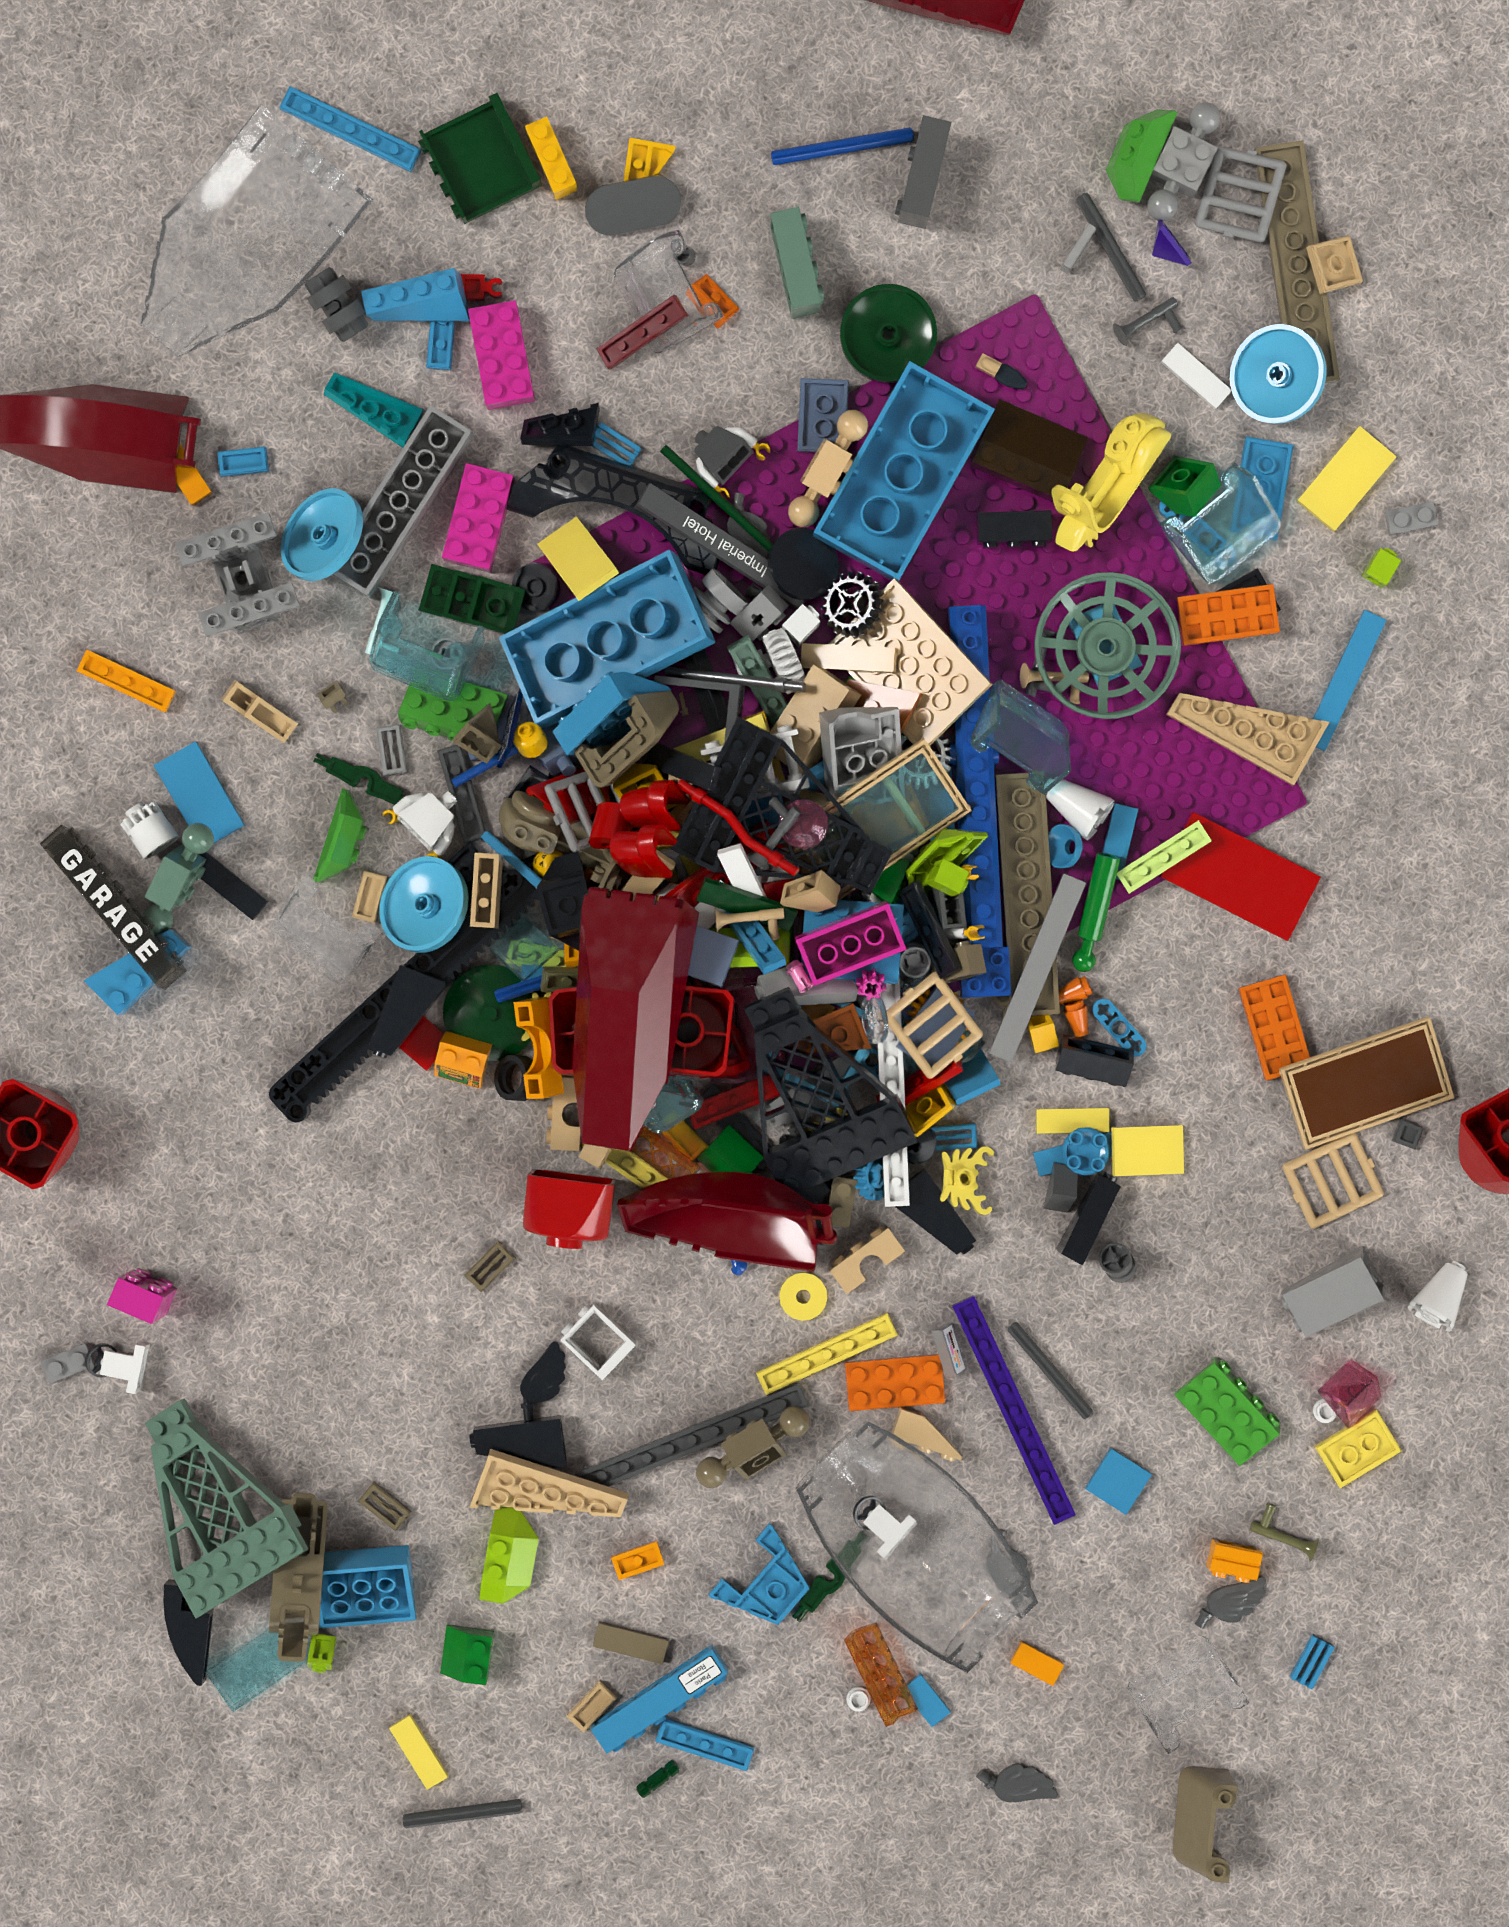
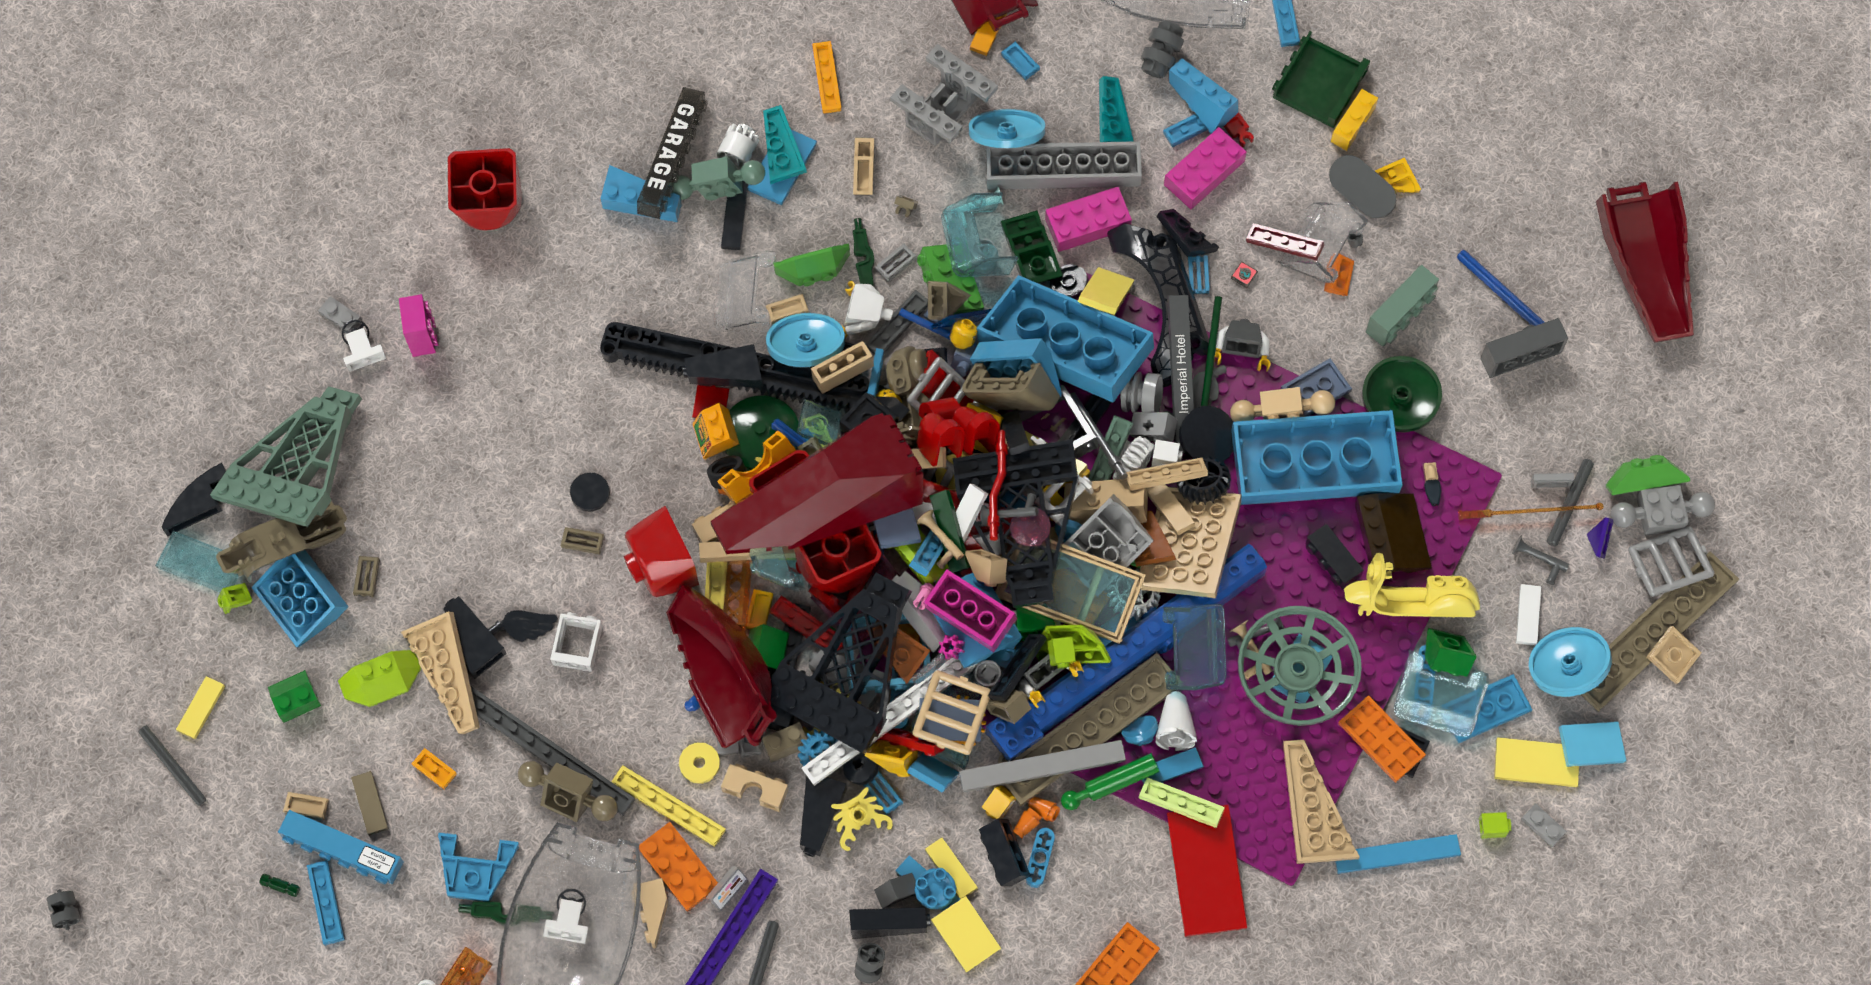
camera: 55 degrees right, 20 degrees down
(186, 786) = (782, 150): none -> teal wing
(441, 1226) = (589, 492): none -> black tile
(646, 398) = (1244, 274): none -> tile
(826, 640) = (1166, 474): none -> tan tile
(1070, 339) = (1489, 513): none -> clear orange piece
(1367, 412) = (1592, 744): none -> medium azure tile

